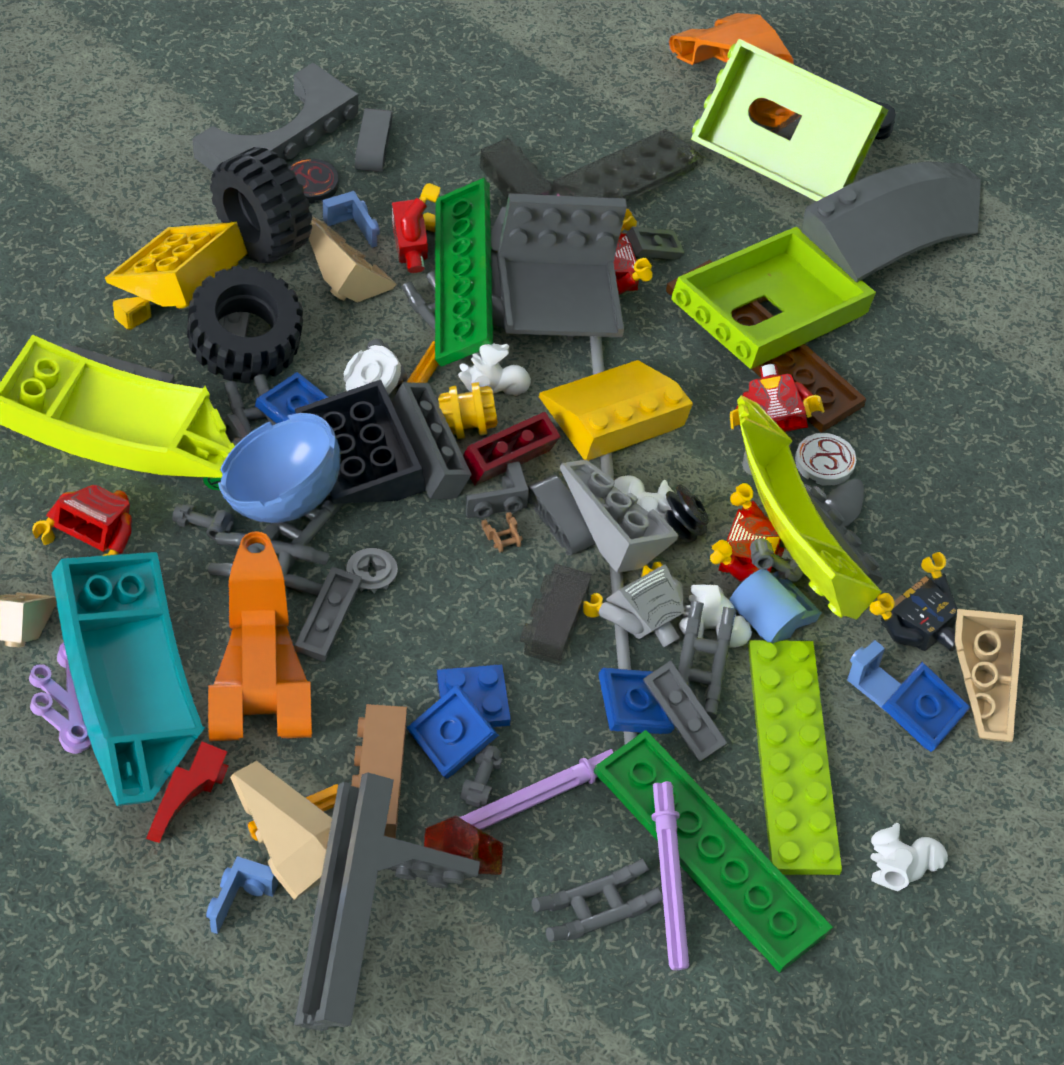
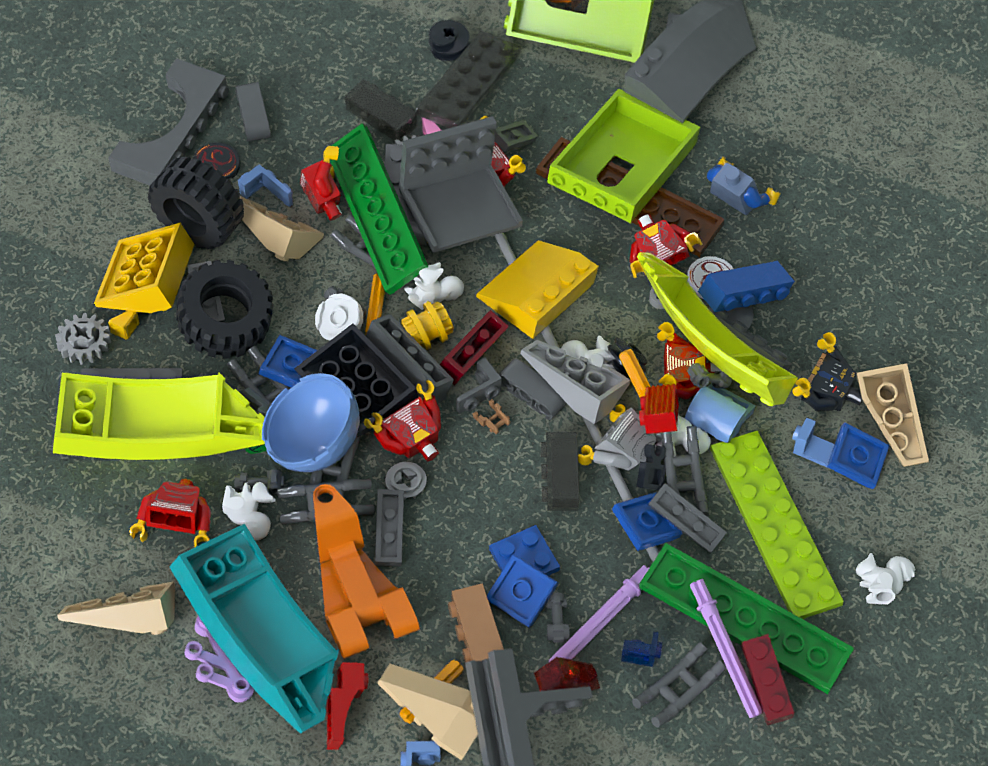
camera: 15 degrees left, 5 degrees up
(79, 313) = (82, 337): none -> light grey gear
(171, 542) = (243, 507): none -> white animal
(400, 513) = (410, 428): none -> red torso
(566, 849) = (640, 652): none -> clear blue bracket
(623, 126) = (448, 39): none -> black piece
(664, 645) = (652, 472): none -> black plate
(689, 542) = (634, 371): none -> light orange axle
(699, 576) = (659, 409): none -> red brick
(706, 928) = (767, 679): none -> dark red brick
(859, 474) = (746, 286): none -> blue brick
(896, 371) = (738, 188): none -> sand blue torso

